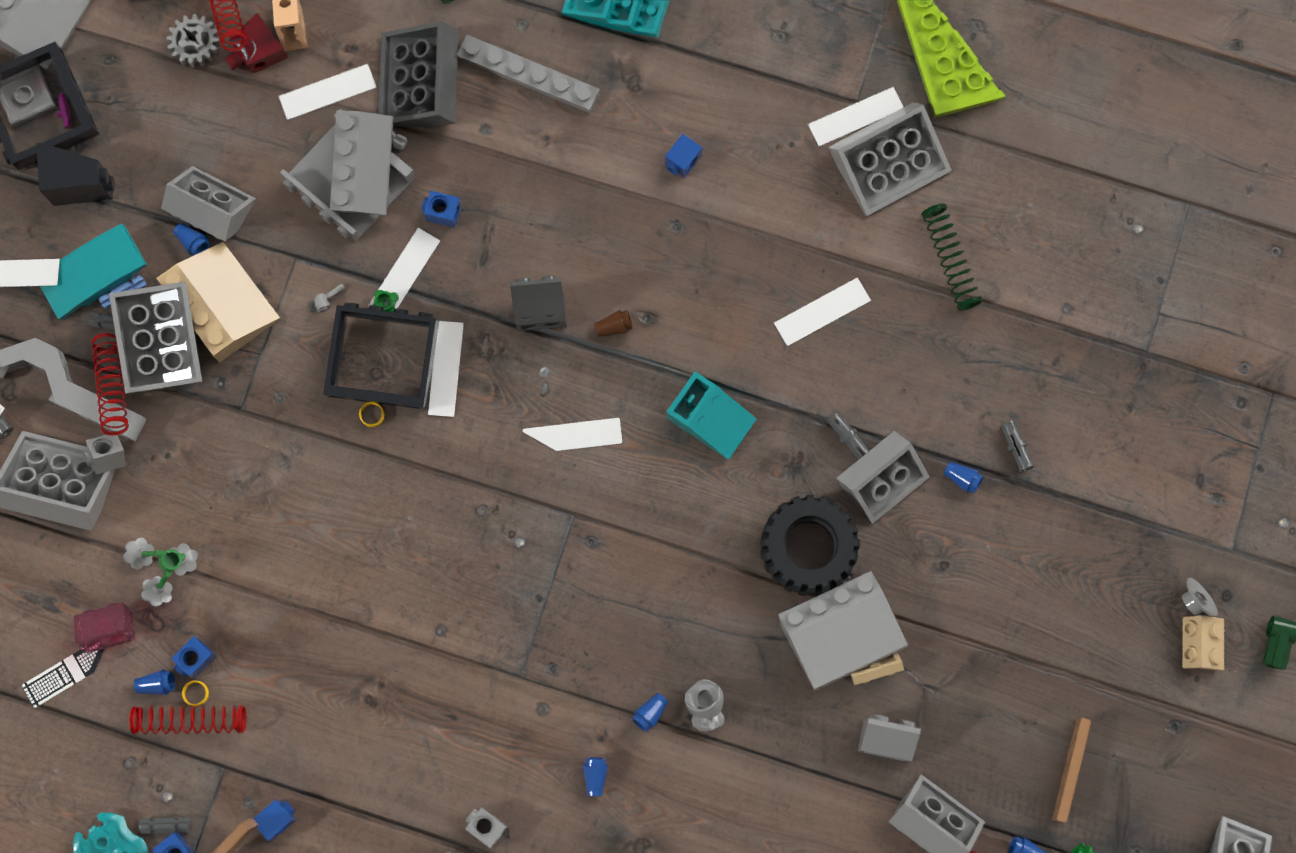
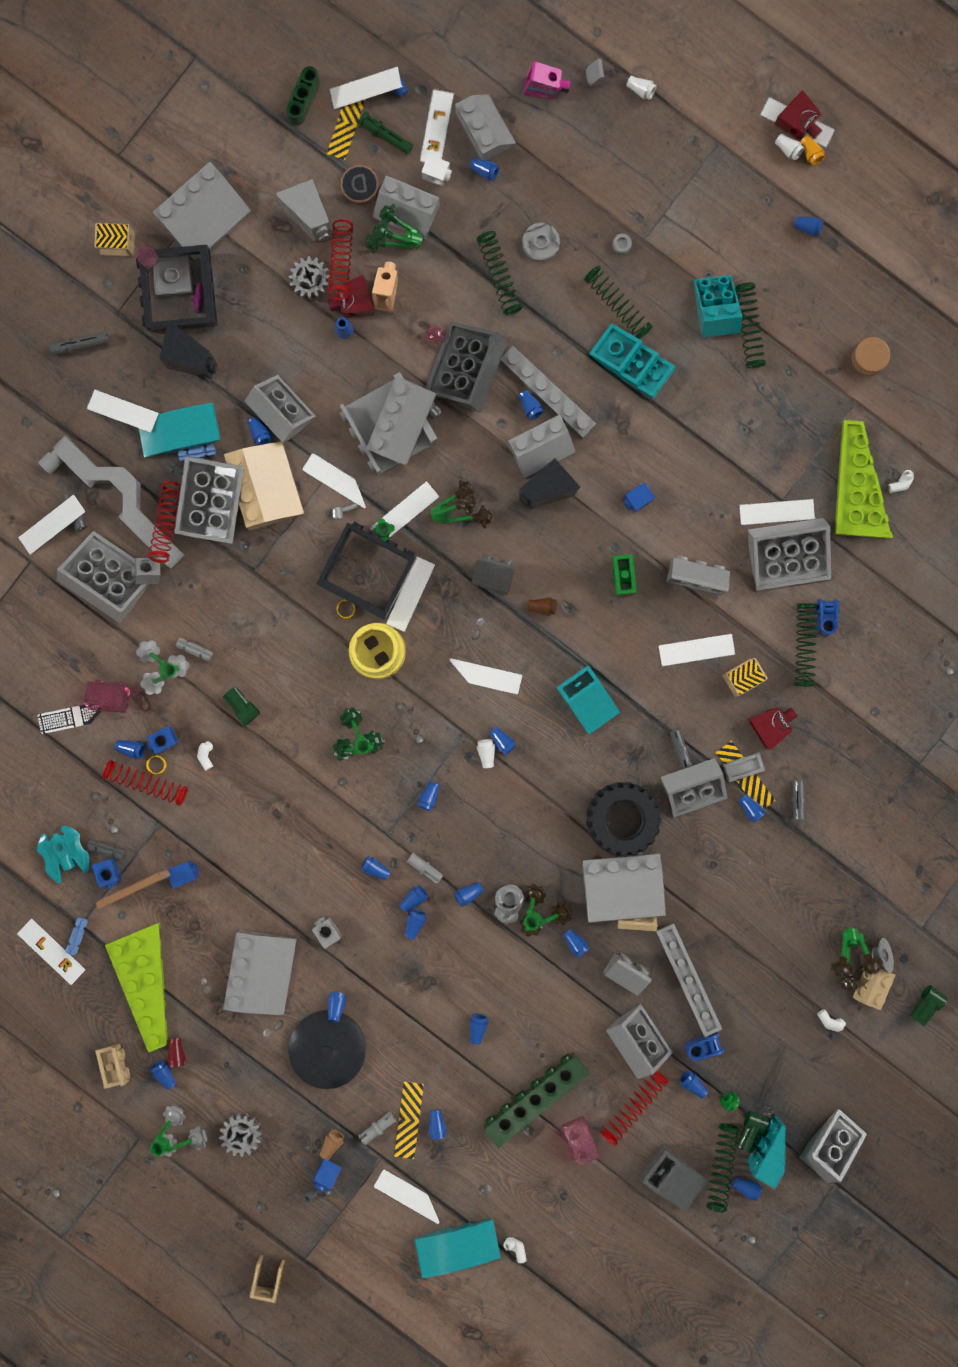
camera: 15 degrees right, 10 degrees up
(196, 530) = (194, 649): none -> light grey axle
(251, 660) = (203, 751): none -> white arm
(254, 83) = (343, 332): none -> blue cone
(283, 581) = (244, 709): none -> dark green piece
(303, 264) = (334, 478): none -> white sticker
(327, 91) = (395, 352): white sticker -> none
(368, 52) = (435, 333): none -> clear pink tile
(414, 466) = (389, 642): none -> light yellow piece
(447, 217) = (450, 482): blue brick -> none
(458, 565) = (362, 744): none -> dark green plant
(471, 227) = (467, 502): none -> dark brown plant
(513, 95) = (531, 406): none -> blue cone
(520, 723) = (373, 867): none -> blue cone
(543, 137) = (541, 445): none -> light grey slope
(556, 608) = (428, 798): none -> blue cone
(568, 179) = (548, 486): none -> black slope
(583, 700) = (424, 868): none -> light grey axle
(583, 742) = (414, 898): none -> blue cone
(609, 527) = (486, 752): none -> white cone
(624, 505) = (503, 742): none -> blue cone
(699, 251) = (623, 575): none -> green brick
(742, 710) = (533, 921): none -> dark brown plant
(790, 221) = (698, 575): none -> light grey slope
(809, 725) = (576, 943): none -> blue cone
(892, 320) = (745, 677): none -> piece
(934, 431) = (743, 767): none -> light grey tile
(939, 440) = (752, 784): none -> sticker
(949, 367) = (772, 726): none -> dark red torso
(962, 211) = (827, 612): none -> blue piece
(969, 720) = (688, 979): none -> light grey plate
(993, 30) = (903, 483): none -> white arm
(1025, 794) = (708, 1047): none -> blue piece
(1071, 770) = (746, 1040): medium nougat tile -> none
(1154, 627) = (844, 968): none -> dark brown plant
(1170, 710) = (831, 1024): none -> white arm

